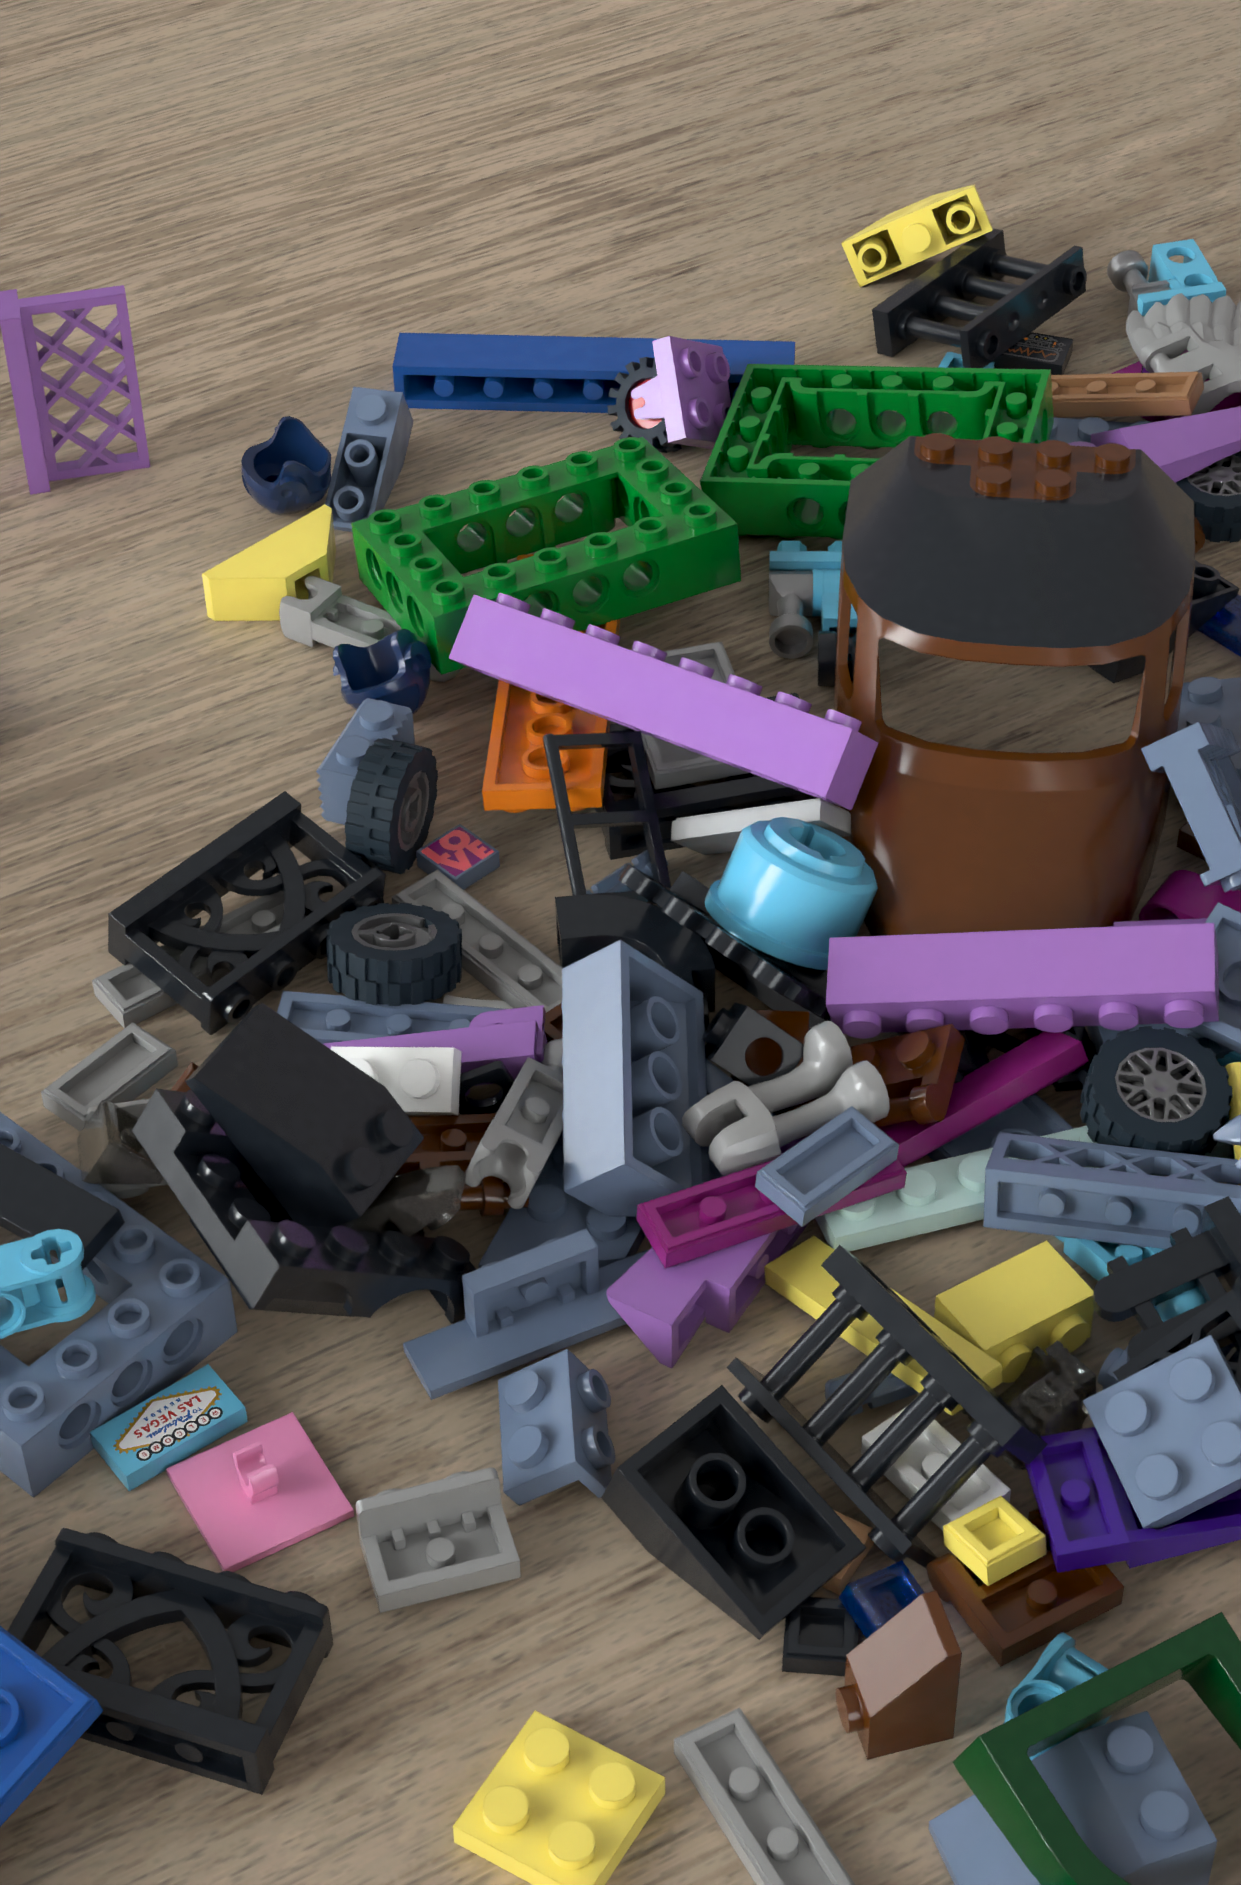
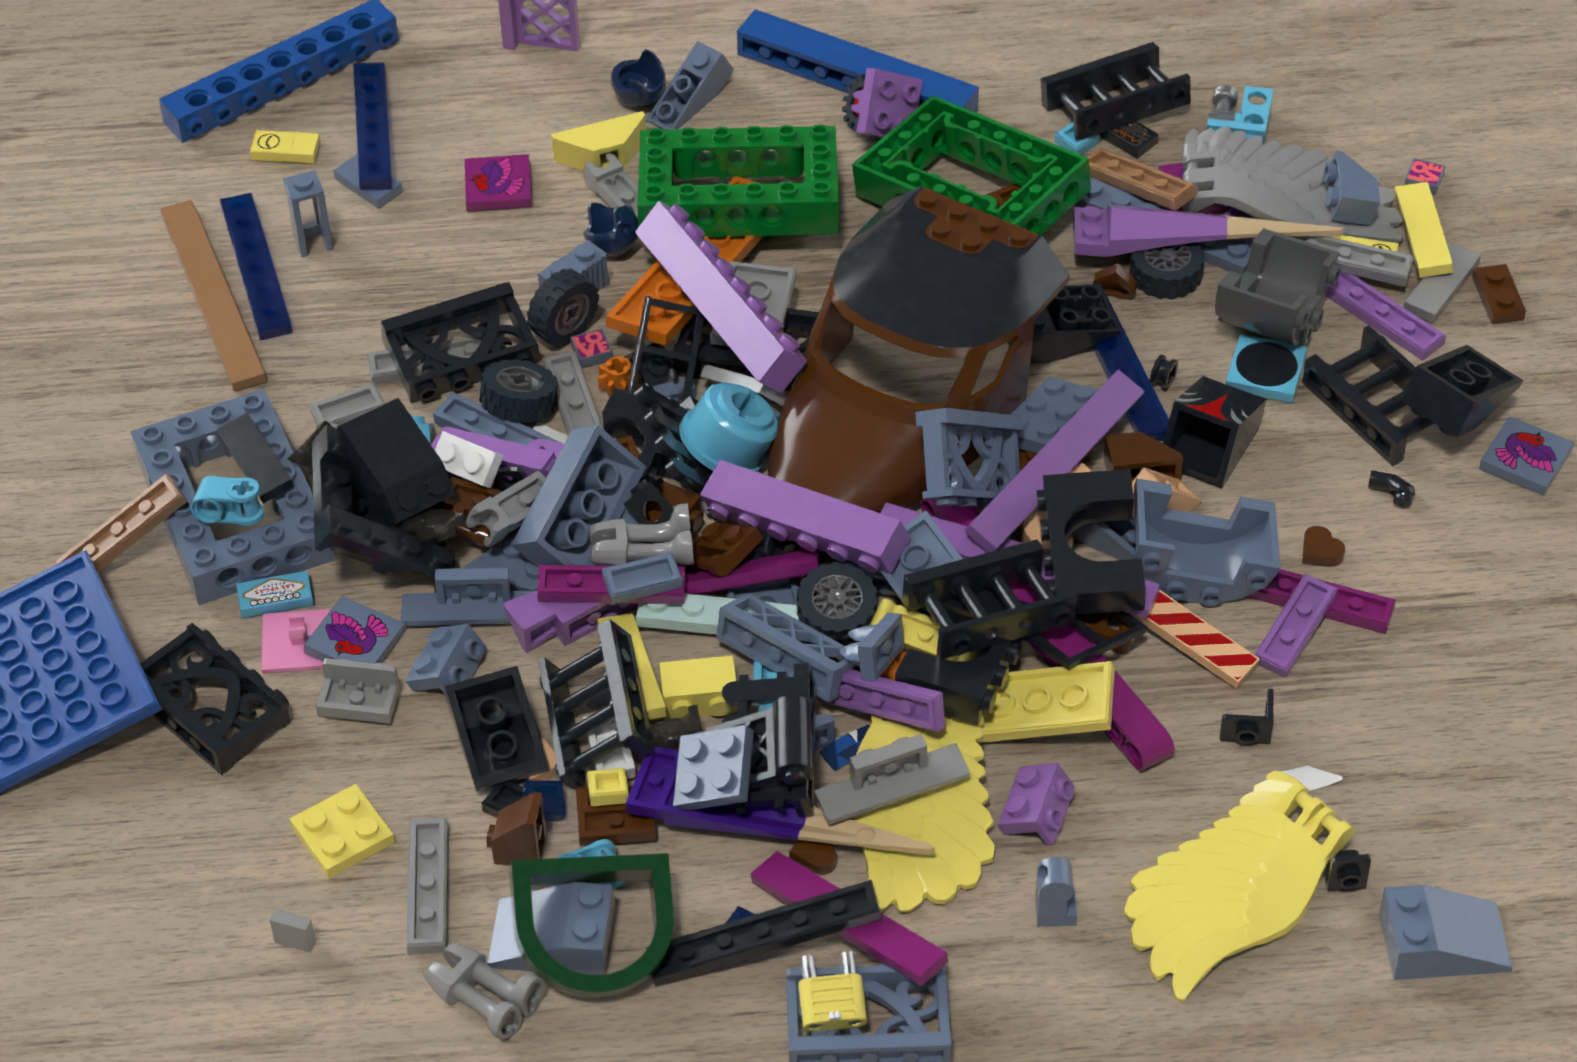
camera: 25 degrees right, 5 degrees up
(146, 672) = (497, 182): none -> magenta tile
(360, 1444) = (354, 634): none -> tile
(534, 883) = (615, 374): none -> orange gear
(595, 851) = (654, 368): none -> black bracket
(916, 233) = (1104, 32): light yellow slope -> none

